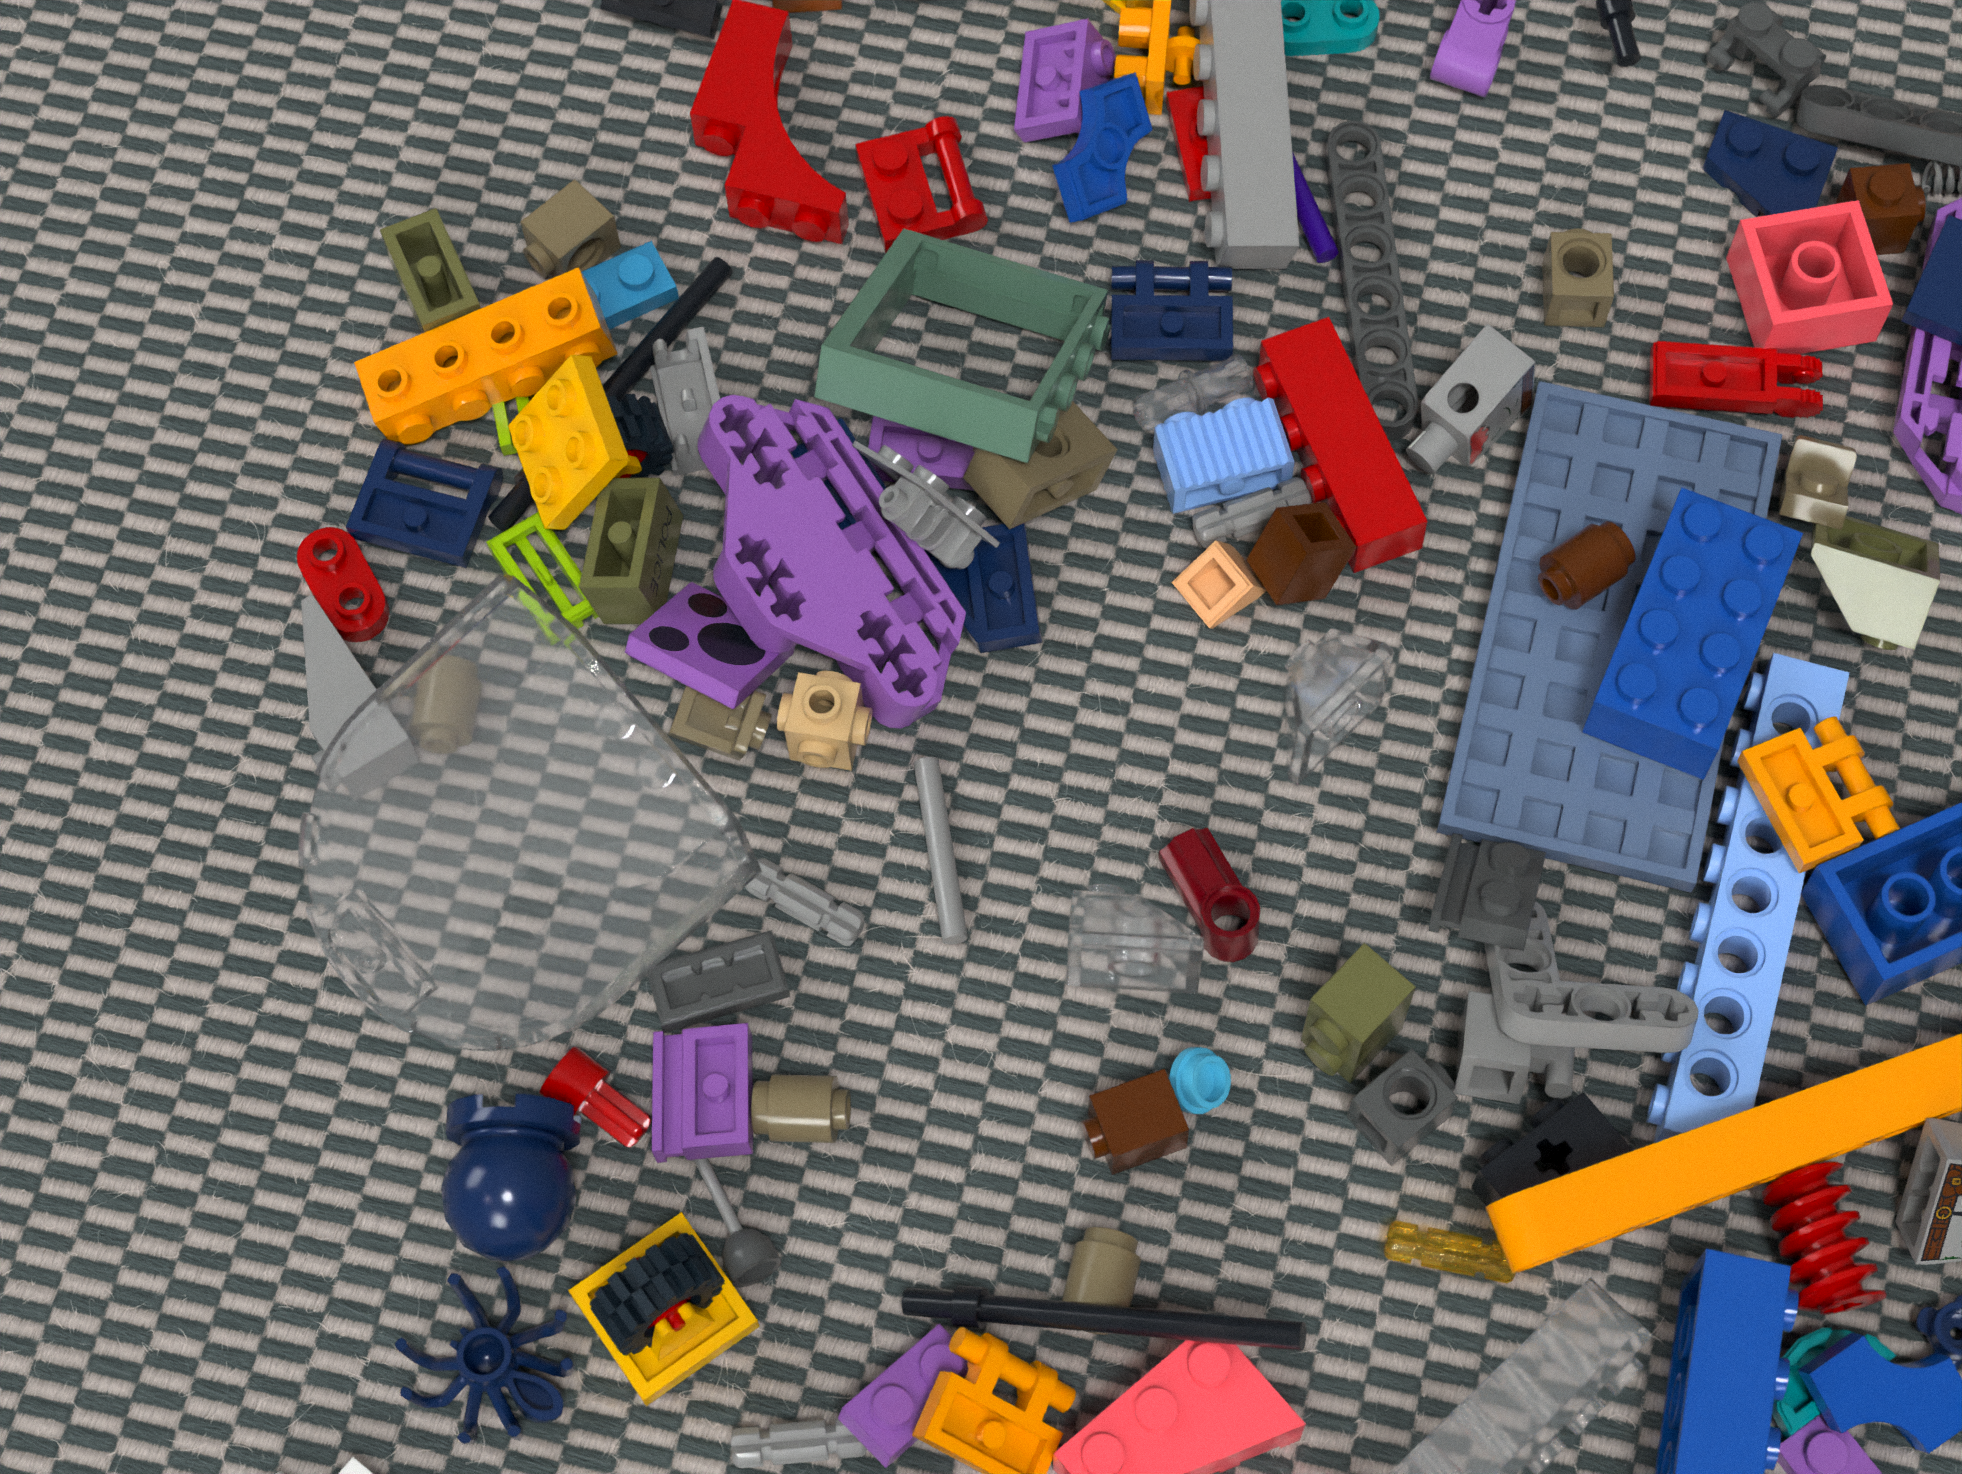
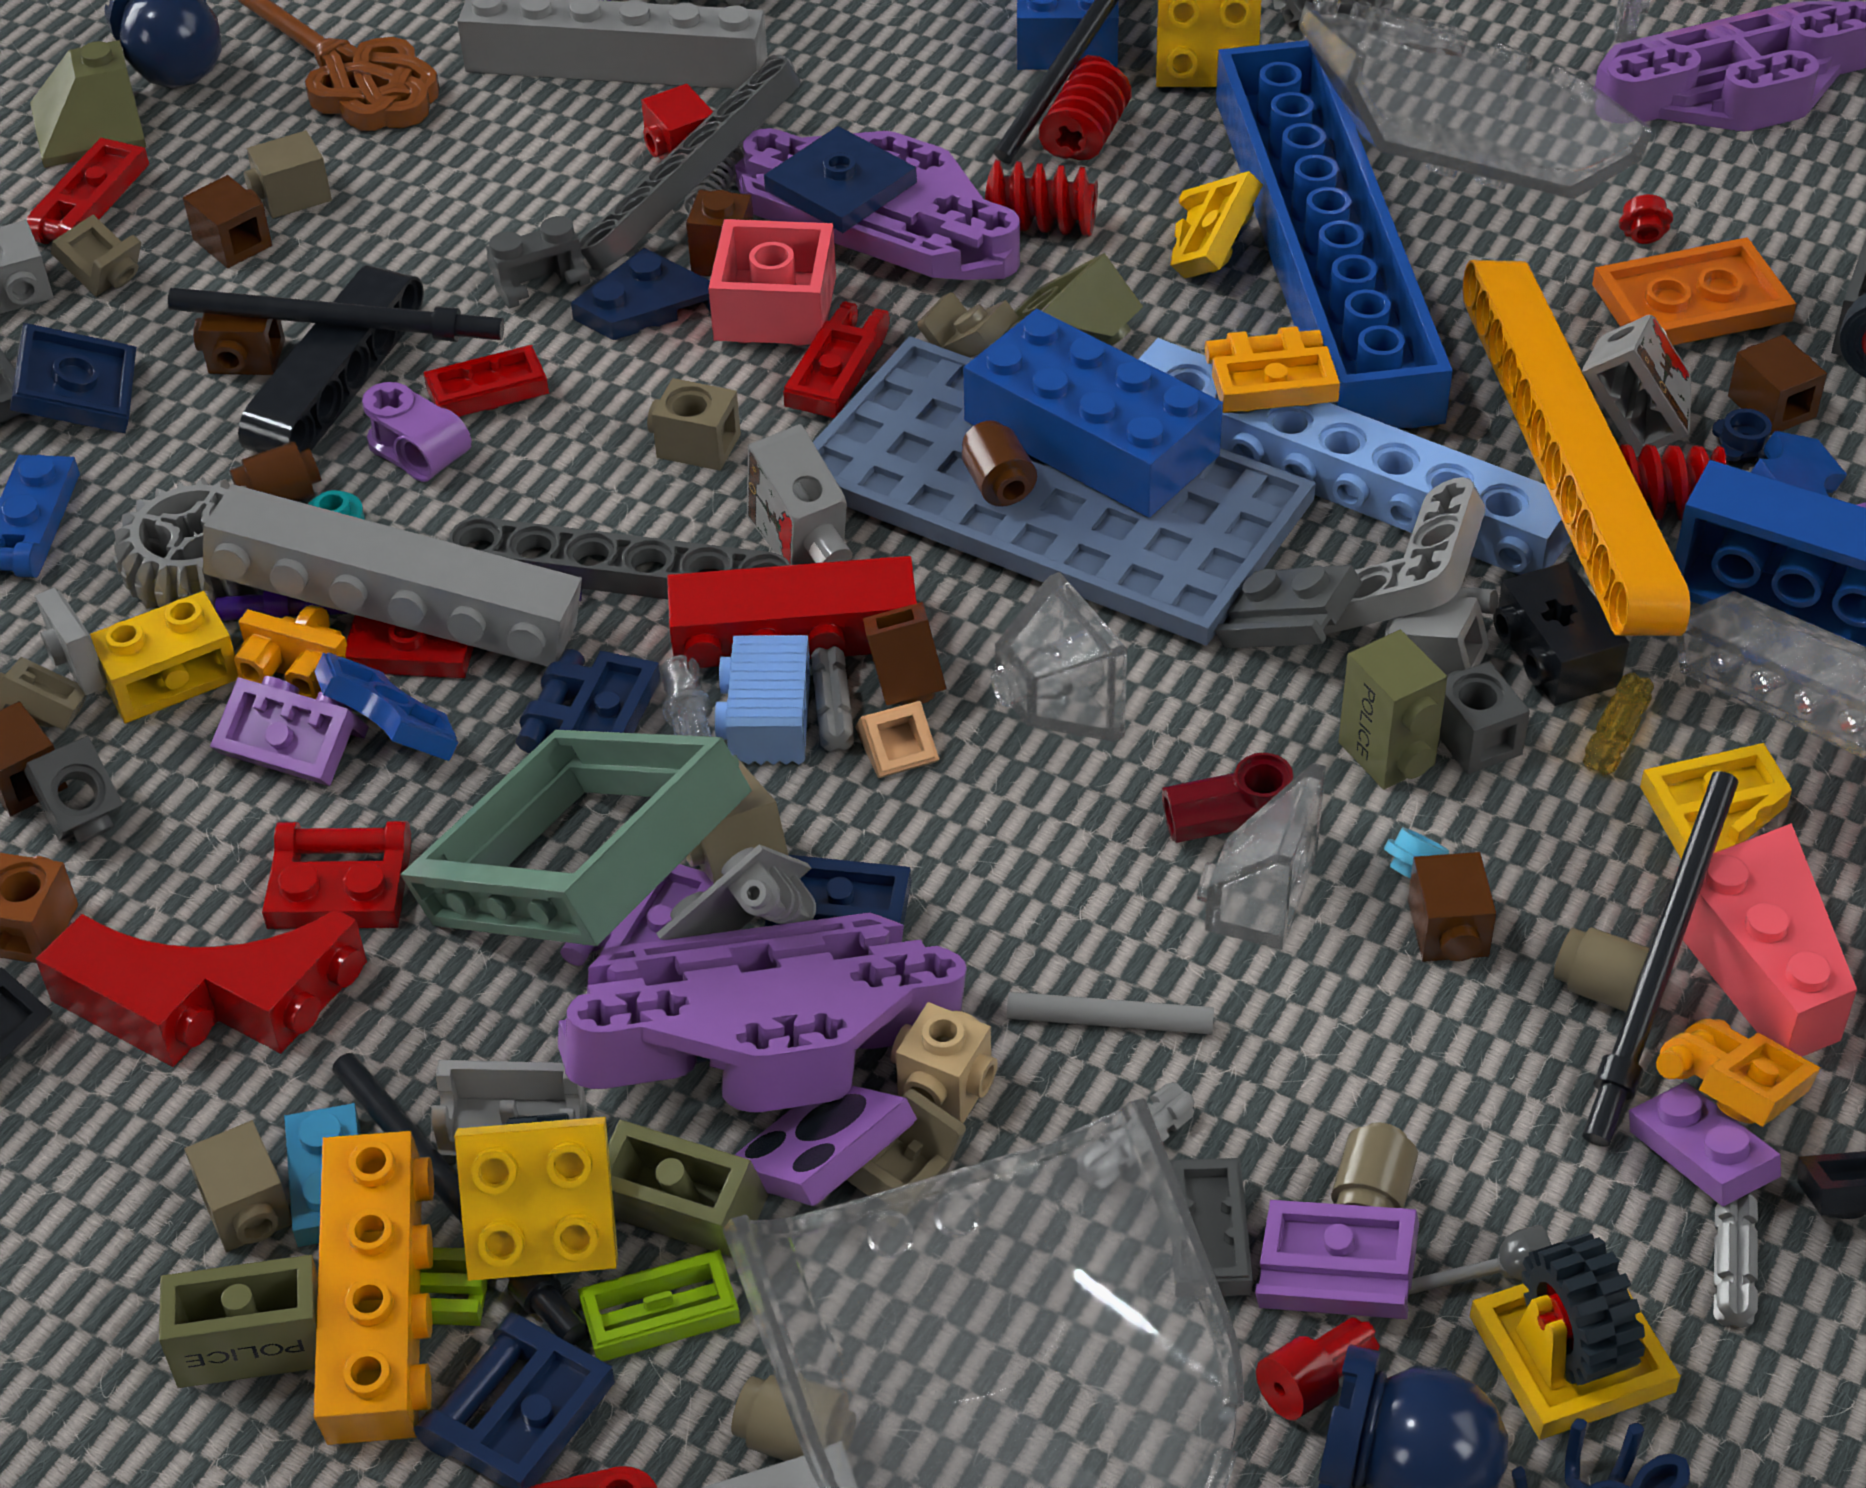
camera: 75 degrees left, 20 degrees down
(1363, 1362) = (1679, 788): none -> yellow wing
(1576, 77) = (487, 381): none -> red plate

